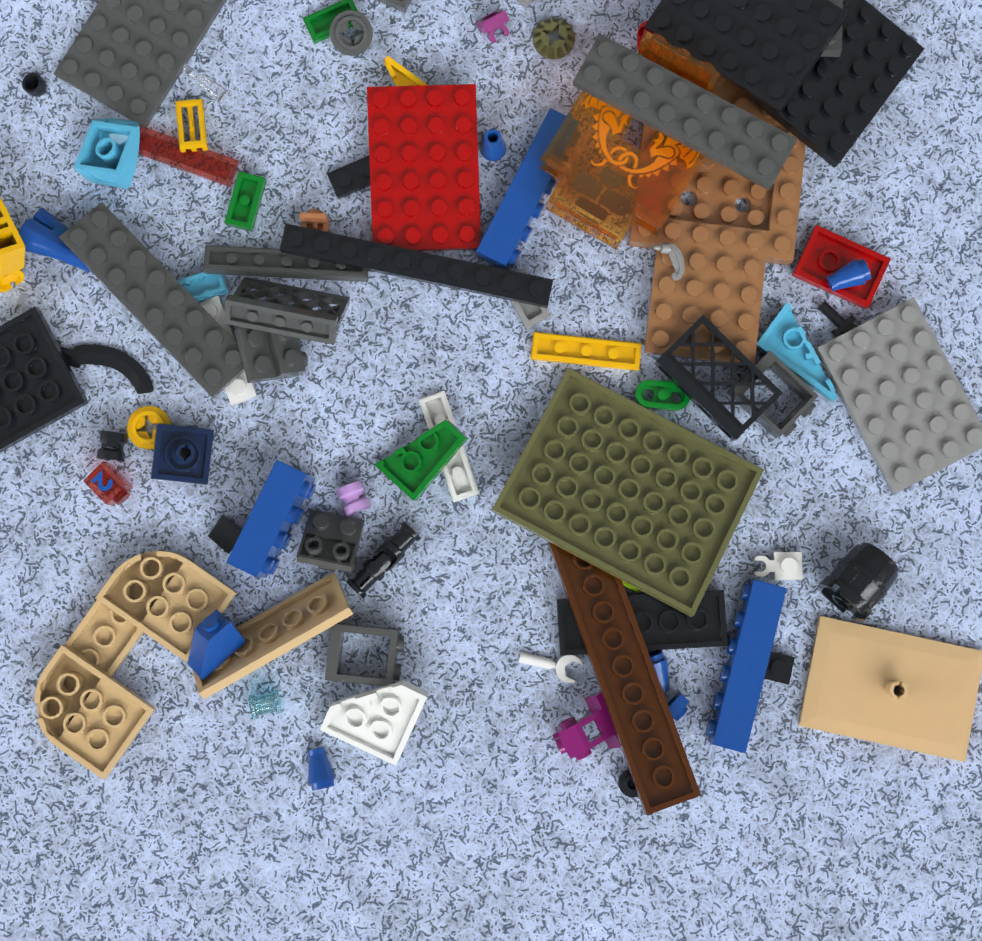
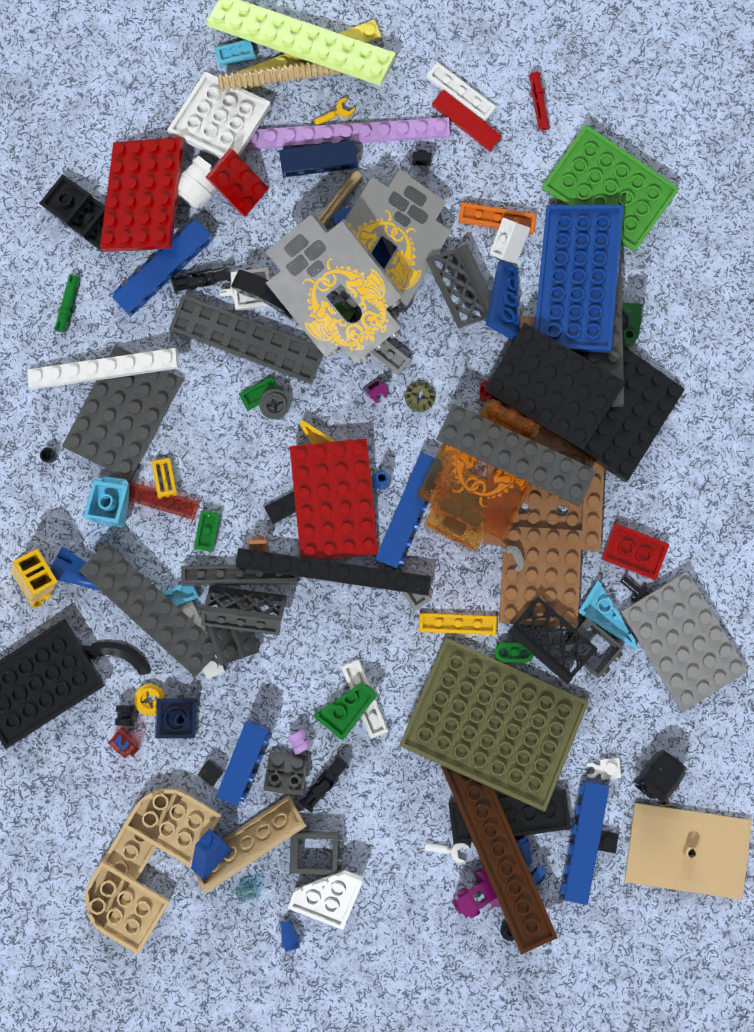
camera: 10 degrees left, 0 degrees up
(851, 275) = (640, 560): blue cone -> none

